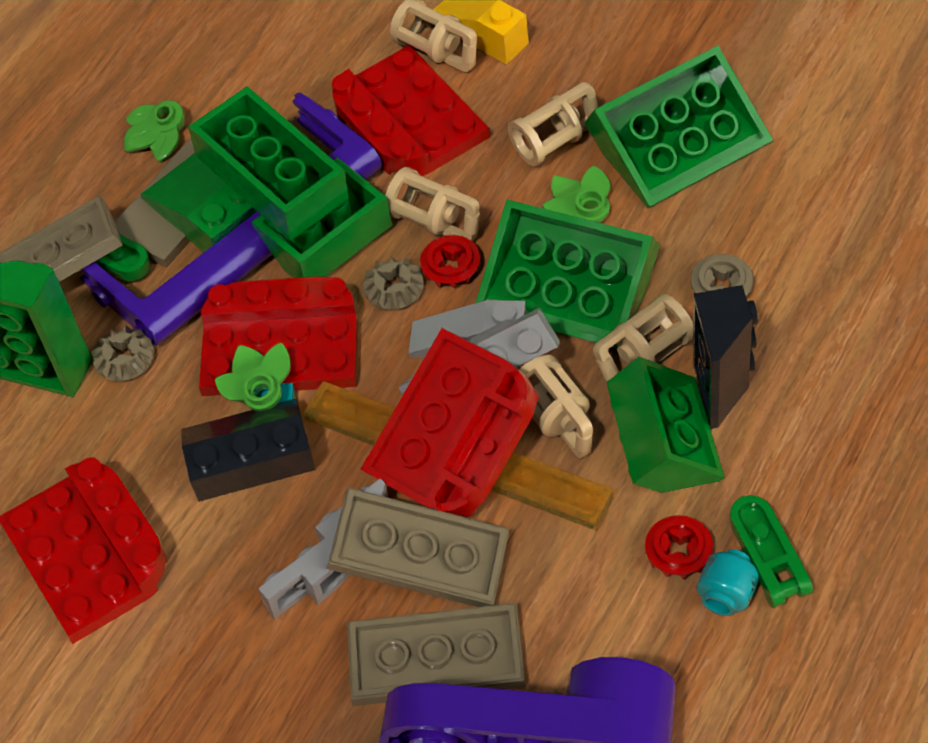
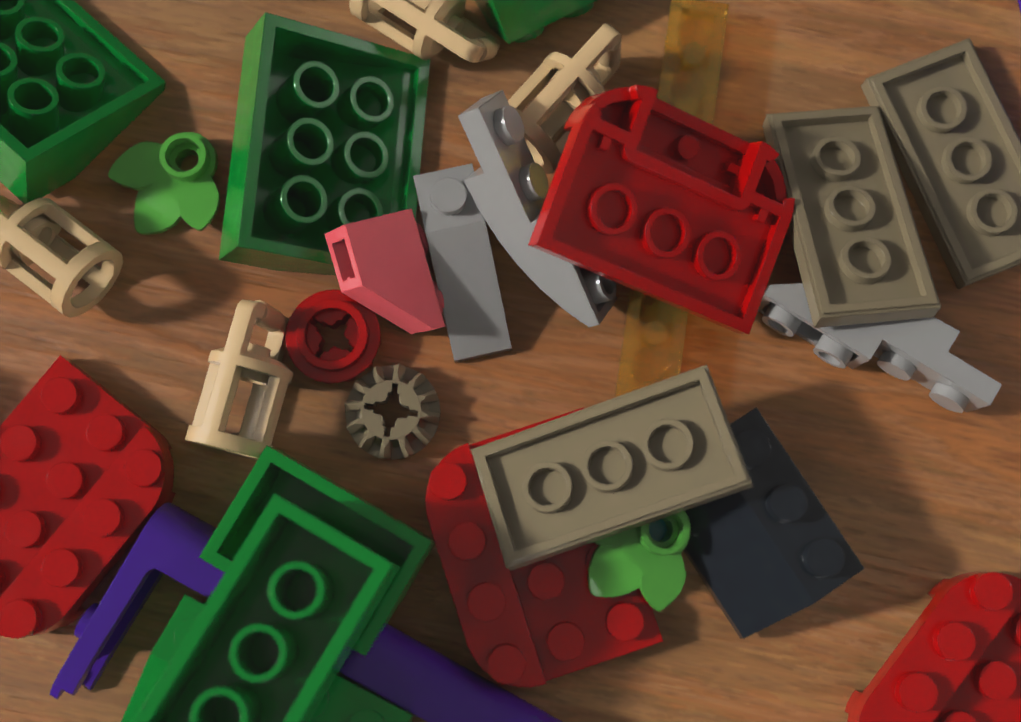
camera: 115 degrees left, 25 degrees up
(305, 363) = (610, 468): none -> dark tan tile
(473, 279) = (387, 270): none -> coral slope

